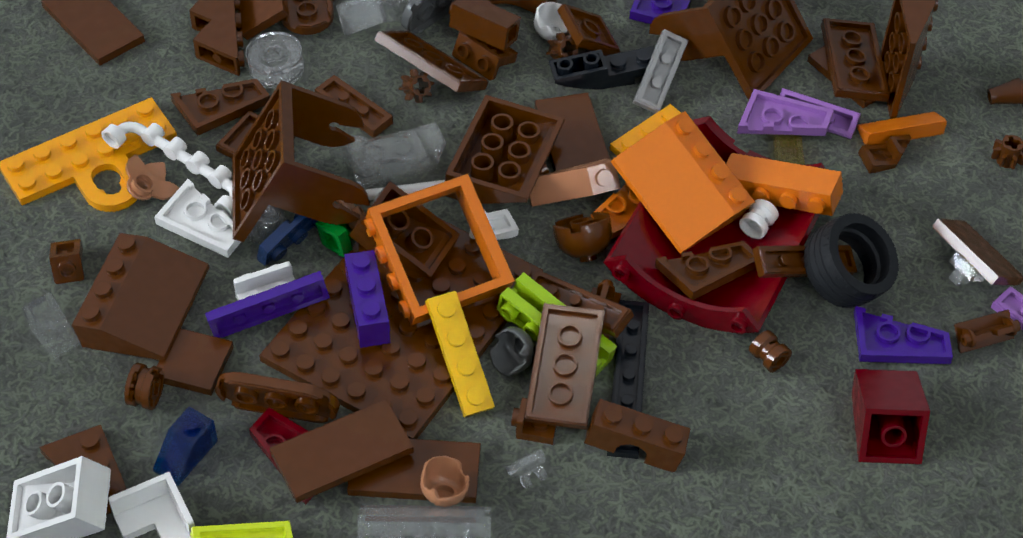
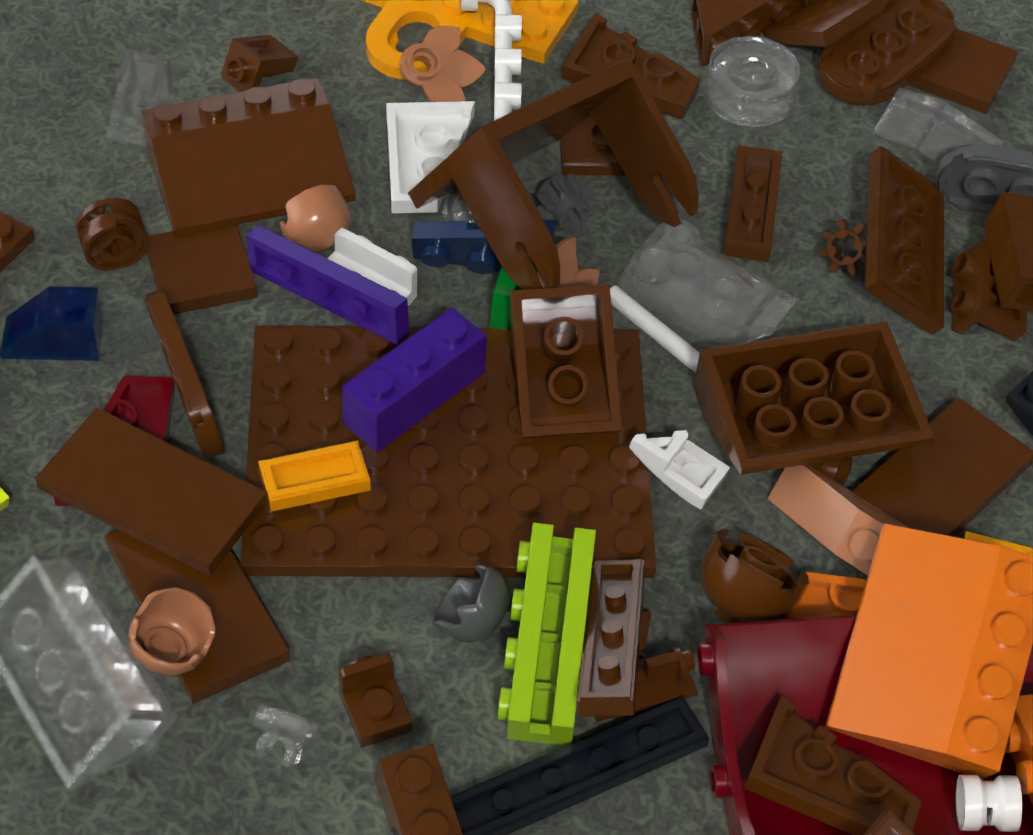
camera: 55 degrees right, 0 degrees up
(219, 286) = (316, 217): none -> nougat hair
(387, 375) = (314, 476): none -> light orange tile
(459, 354) = (406, 537): yellow plate -> none
(481, 231) = (614, 447): orange window -> none
(565, 366) = (478, 673): reddish brown tile -> none

